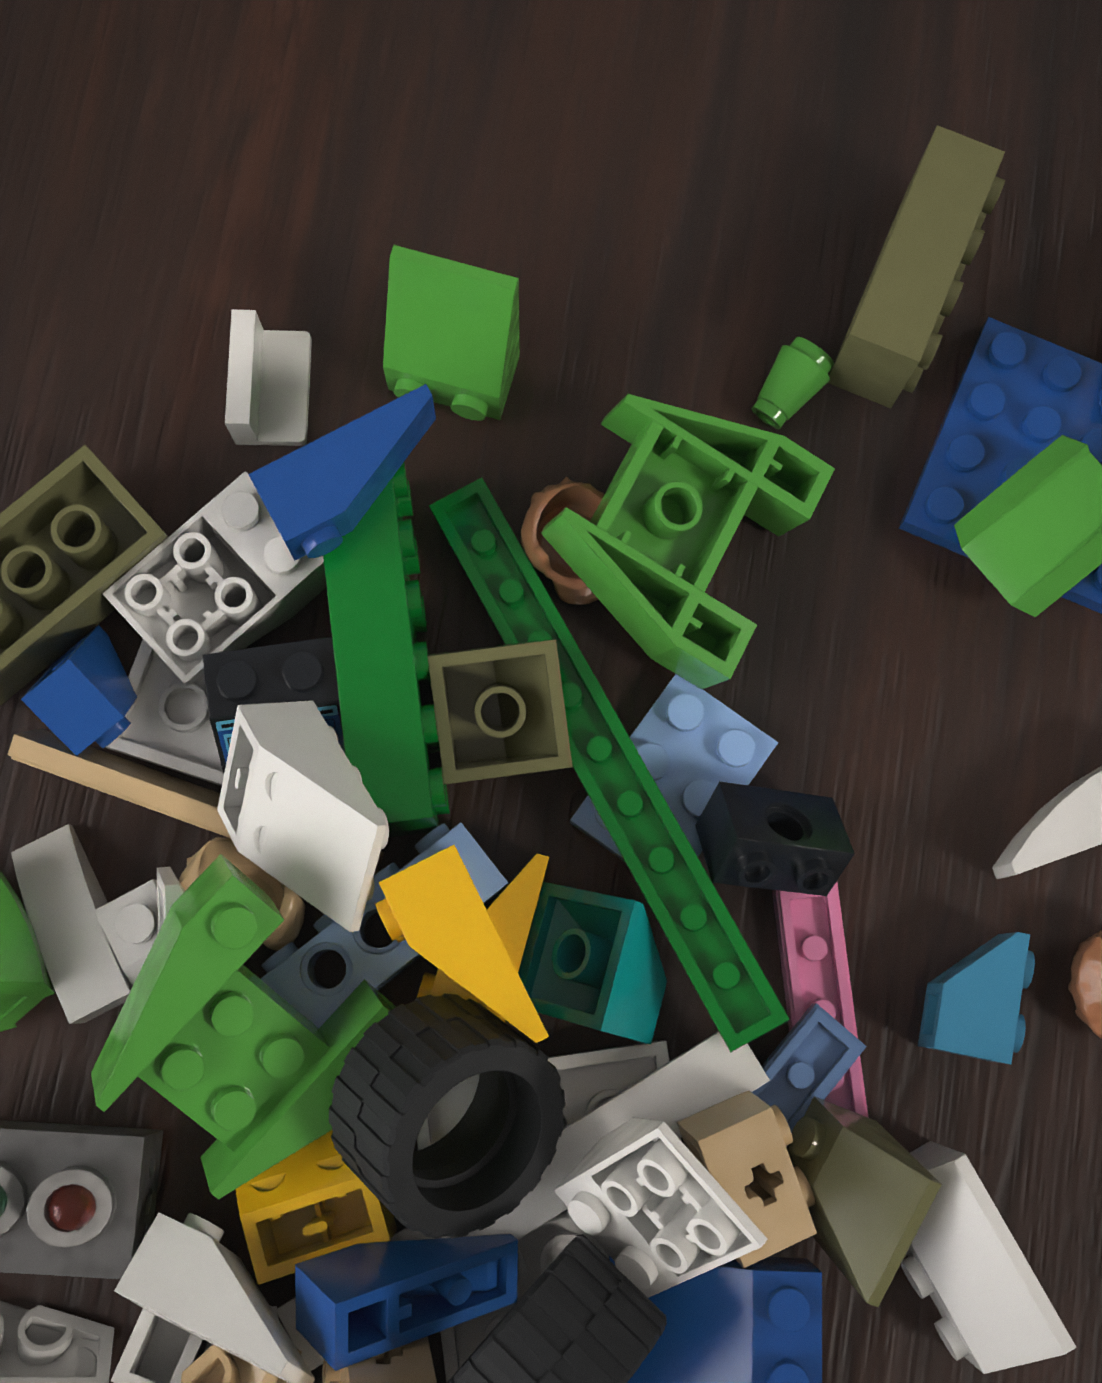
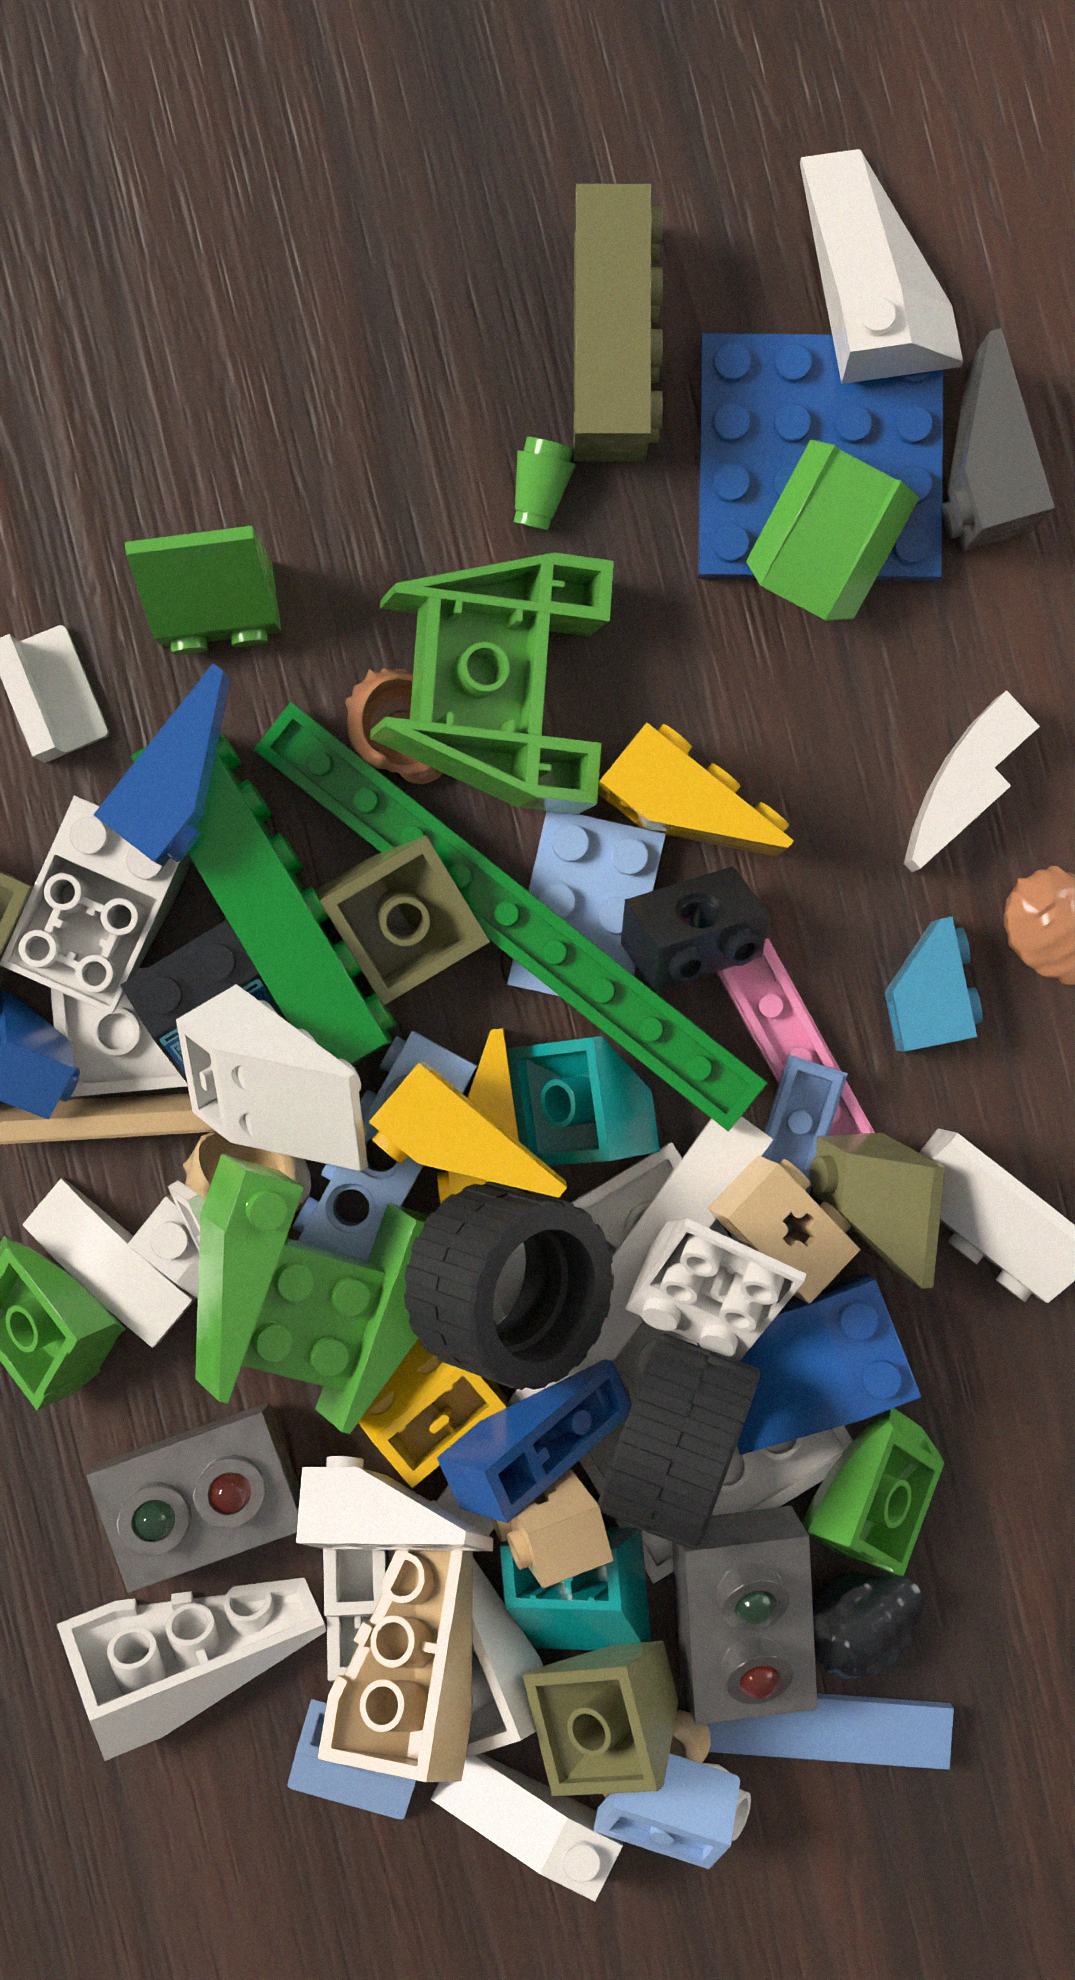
camera: 15 degrees left, 10 degrees up
(806, 704) = (676, 796): none -> yellow slope

